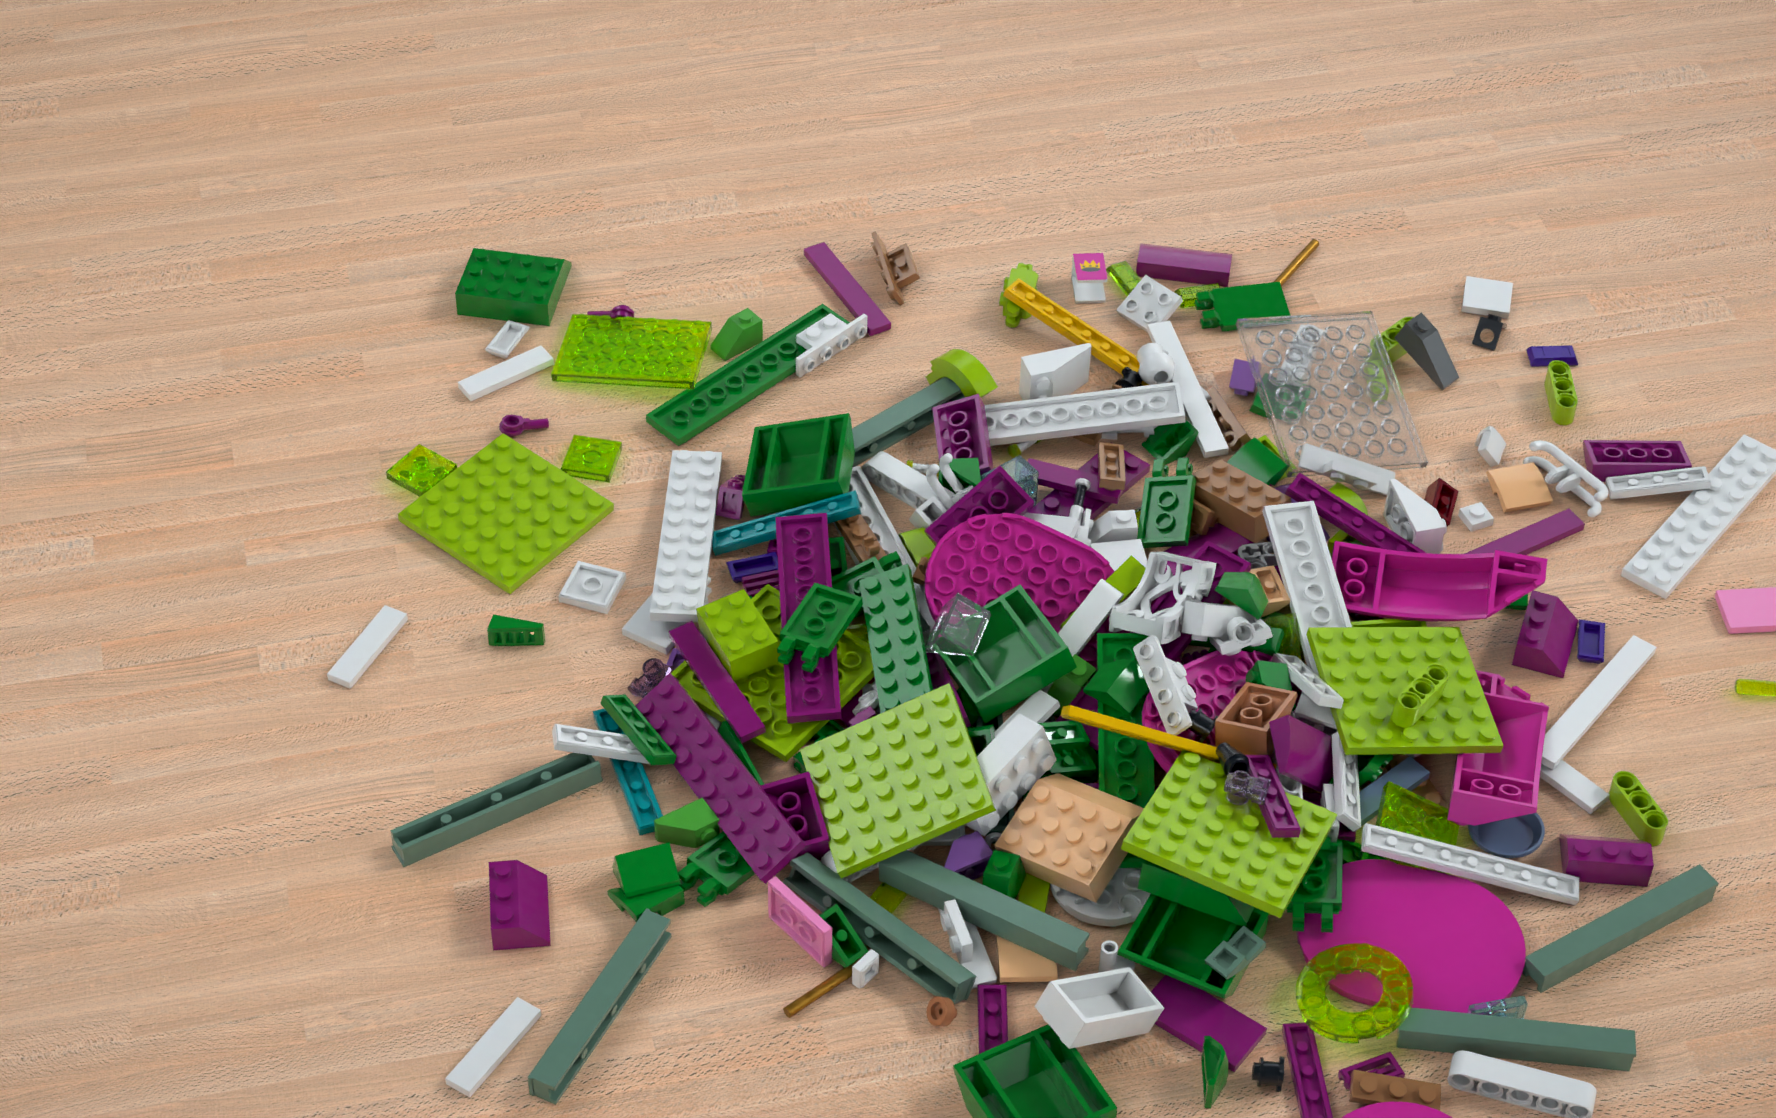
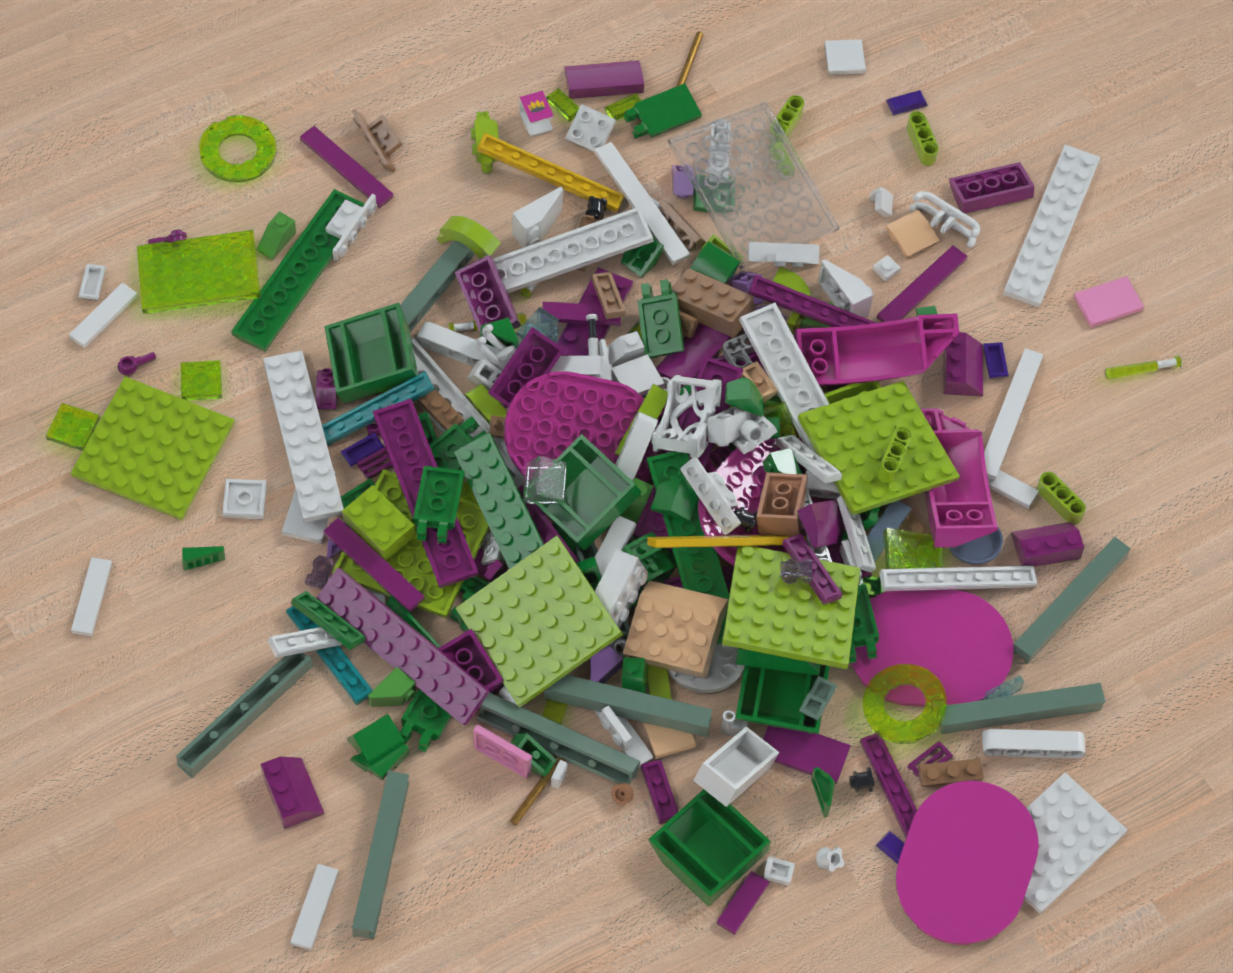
camera: 20 degrees left, 15 degrees up
(511, 286) = (77, 229): green slope -> none
(741, 226) = (241, 126): none -> clear neon green plate
(1155, 364) = (614, 192): white piece -> none
(1232, 759) = (779, 549): black cone -> none
(1428, 350) = (816, 125): dark grey slope -> none
(1443, 498) = (857, 260): dark red slope -> none
(1493, 323) = (857, 84): black bracket -> none
(1658, 482) = (1012, 206): white tile -> none

